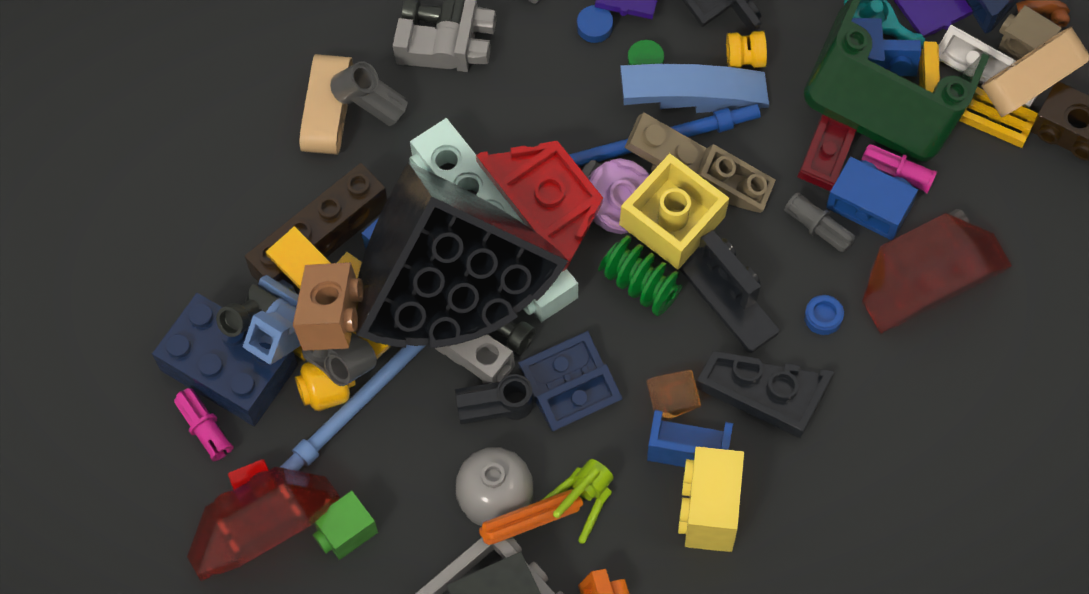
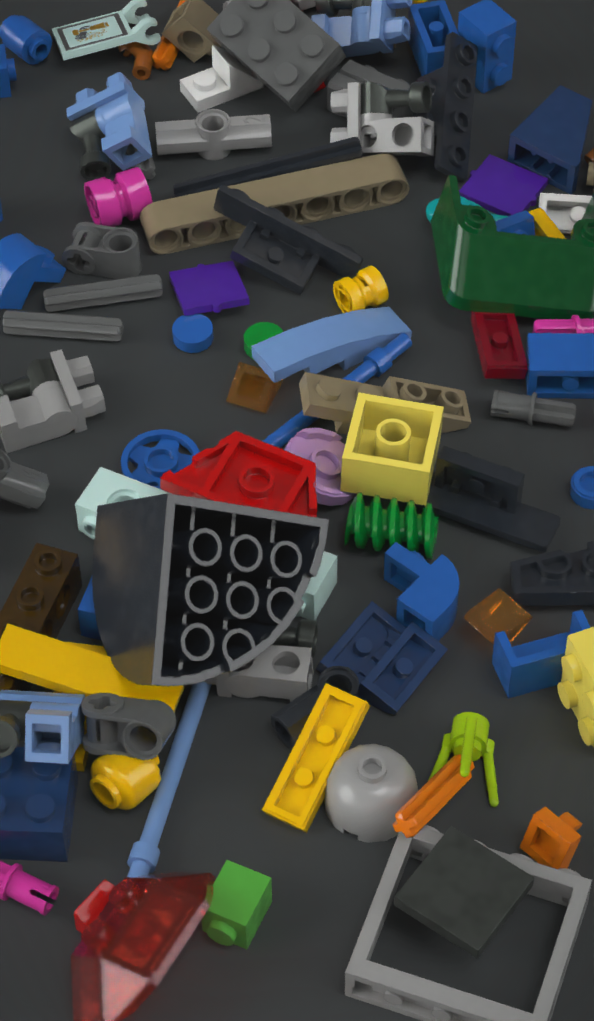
camera: 30 degrees left, 15 degrees down
(327, 306) = (101, 674): medium nougat brick -> none
(473, 433) = (320, 744): none -> yellow tile
(501, 129) = (157, 460): none -> blue wheel
(608, 97) = (252, 388): none -> clear orange slope
(637, 350) = (427, 589): none -> blue brick

